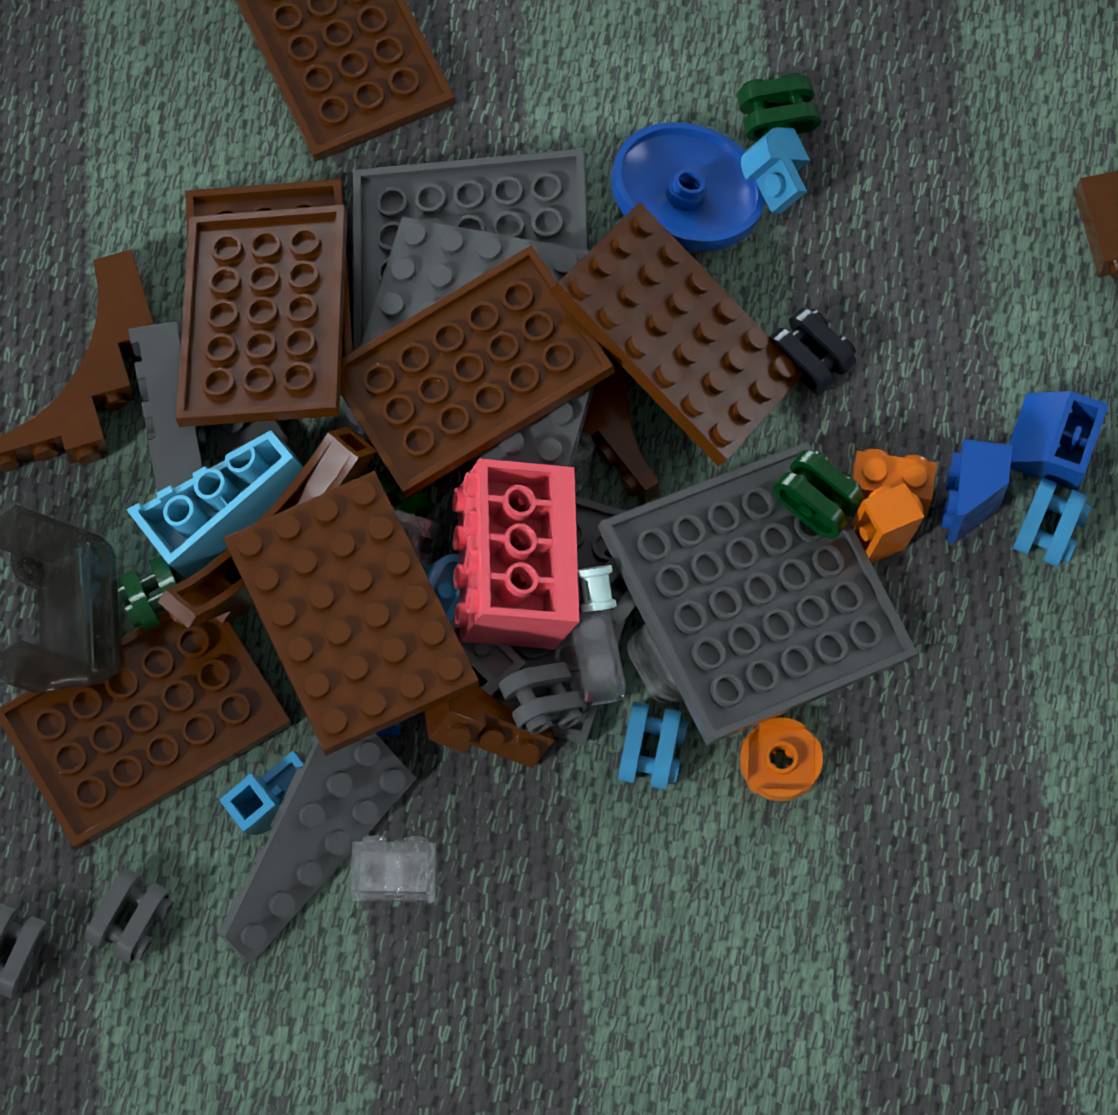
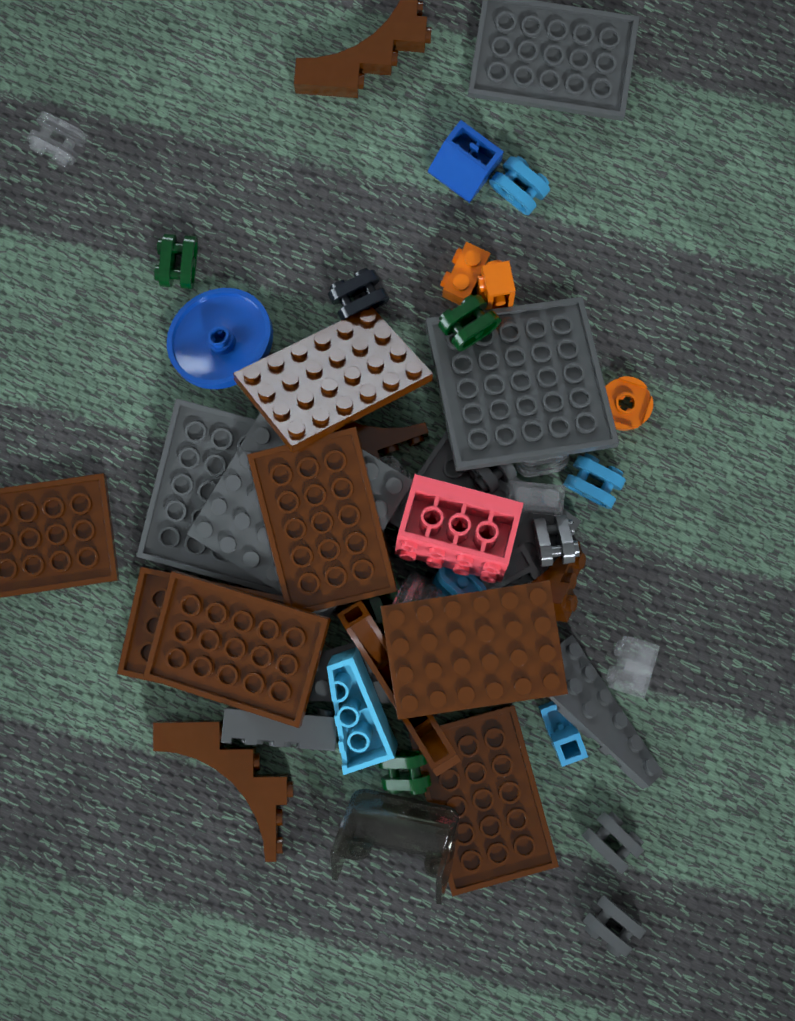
camera: 75 degrees left, 15 degrees up
(596, 588) = (498, 484): light aqua bush -> none
(774, 167) = (221, 278): dark azure brick -> none
(975, 486) = (488, 223): blue slope -> none

